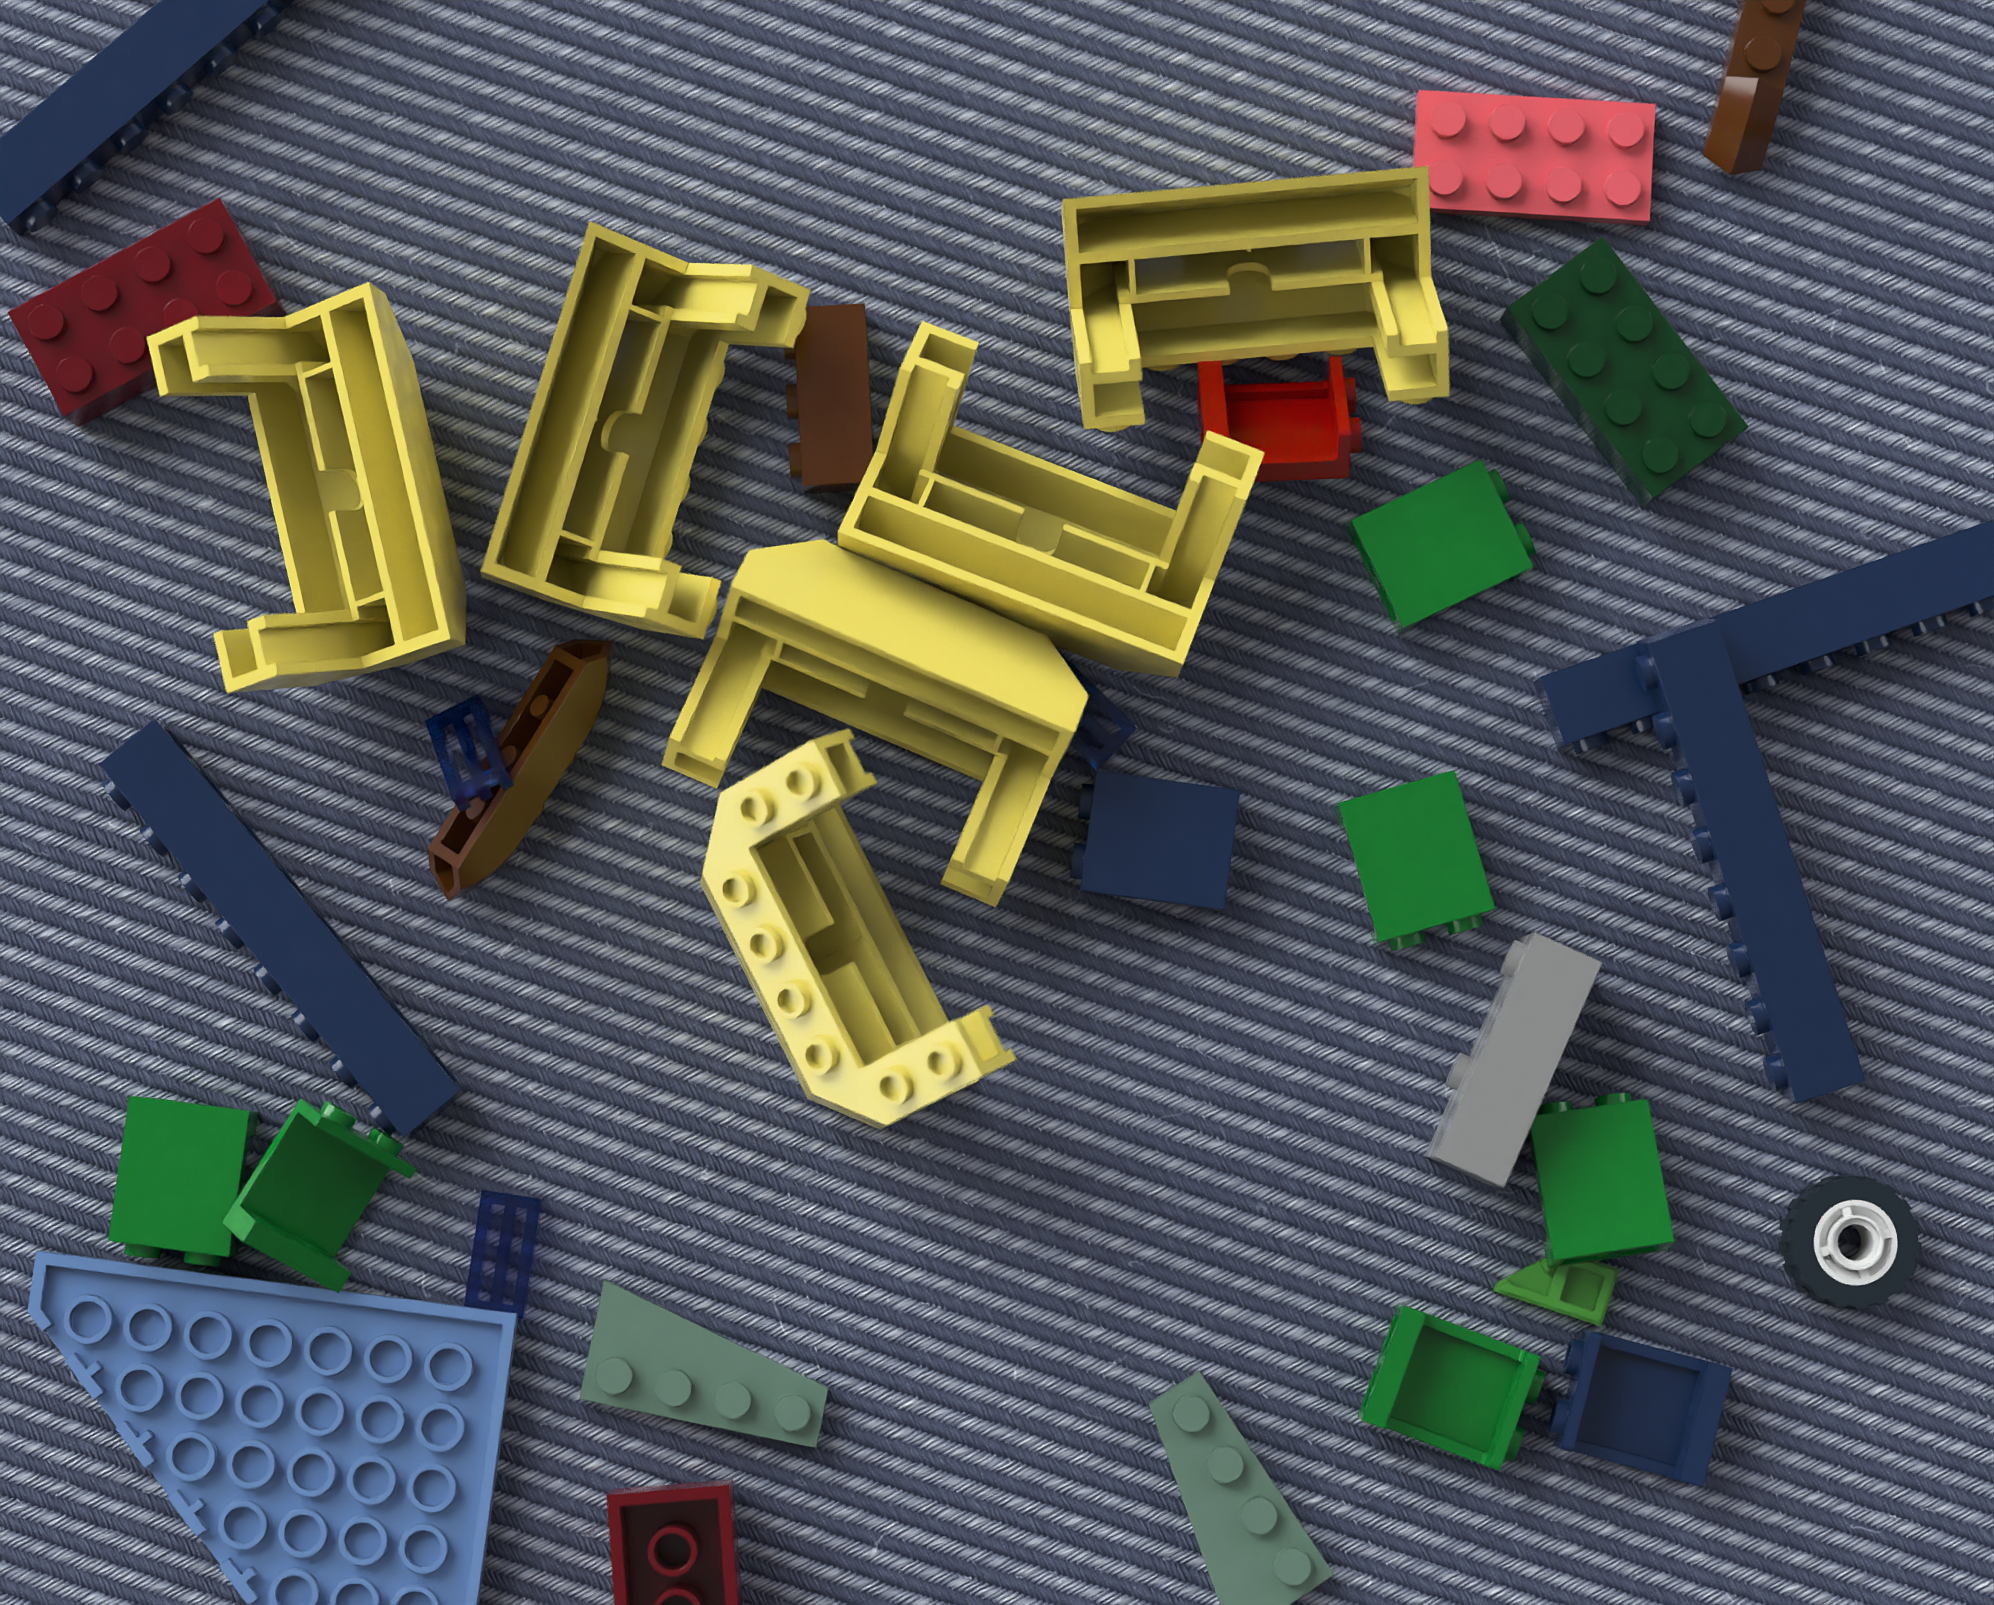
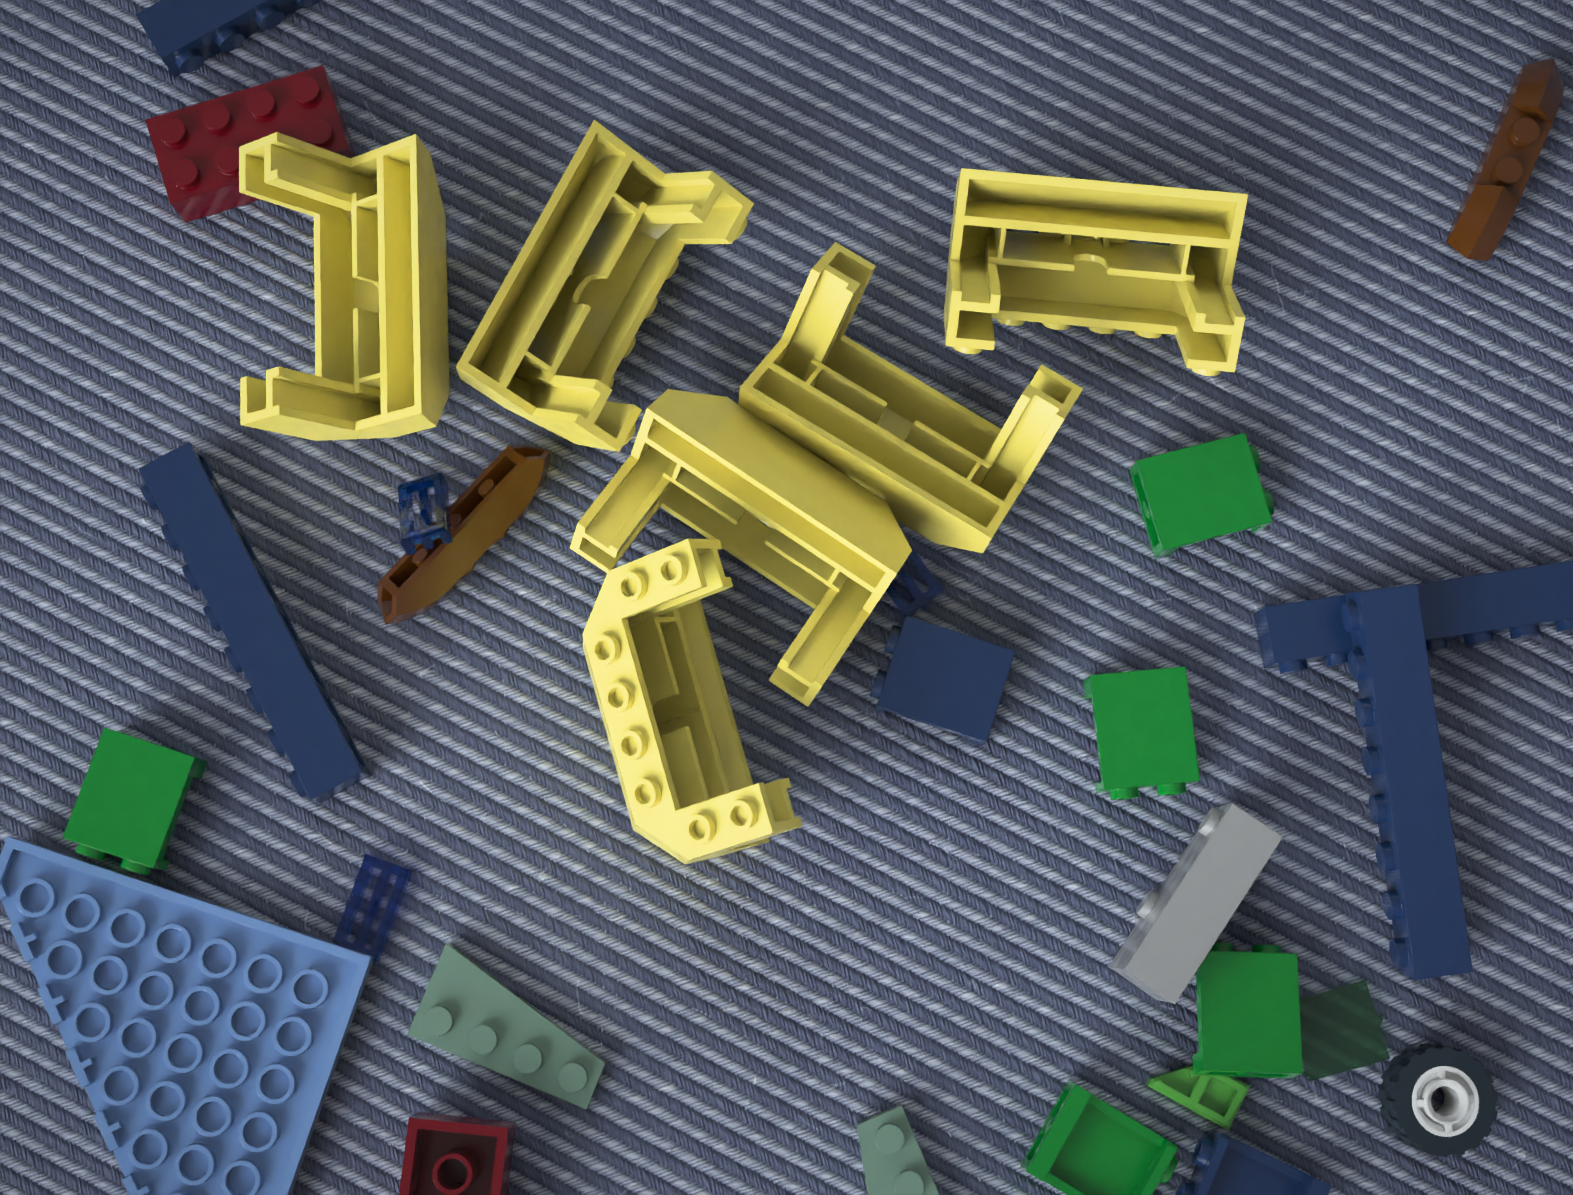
camera: 10 degrees right, 5 degrees down
(314, 1190) = (232, 829): green panel -> none
(831, 400) = (753, 298): reddish brown brick -> none
(1295, 423) = (1113, 385): red panel -> none
(1536, 156) = (1323, 221): coral plate -> none
(1622, 372) = (1362, 389): dark green brick -> none
(1718, 1181) = (1340, 1031): none -> clear green piece

